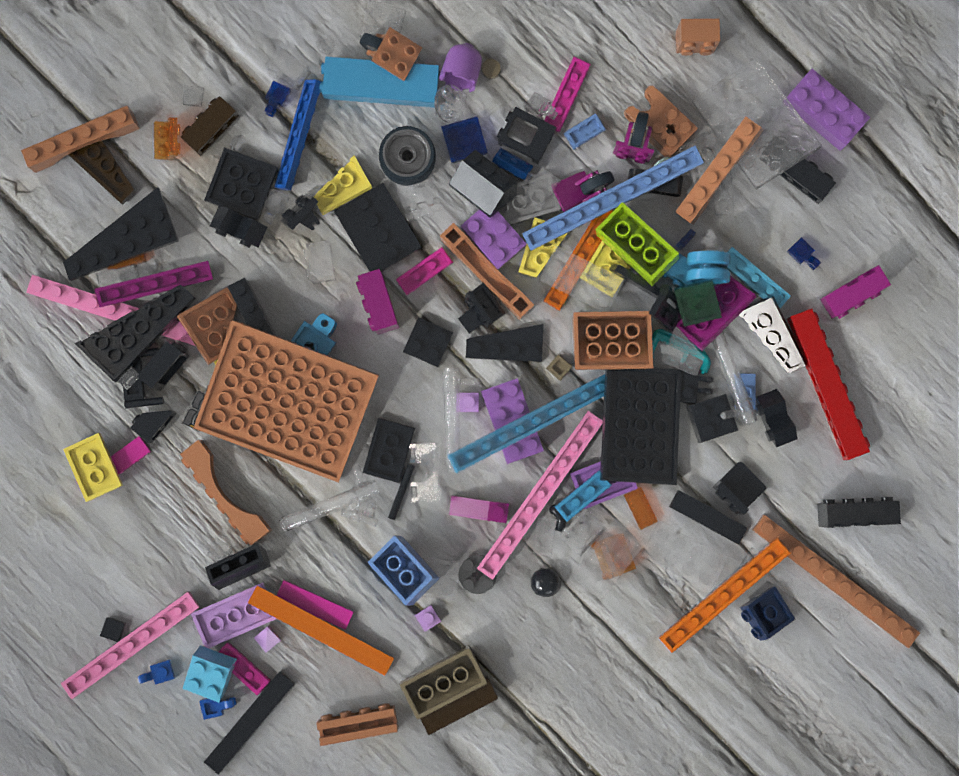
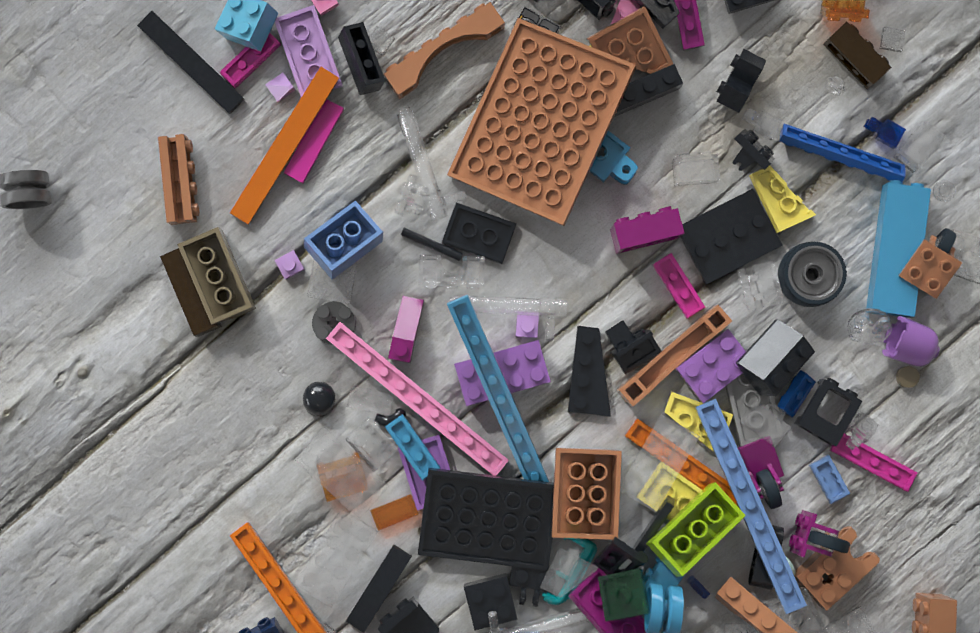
camera: 85 degrees right, 0 degrees up
(215, 709) = (207, 25): blue plate -> none
(241, 184) = (789, 87): black plate -> none
(428, 342) = (597, 284): black plate -> none
(463, 139) = (828, 339): clear blue plate -> none
(559, 367) = (560, 431): dark tan tile -> none

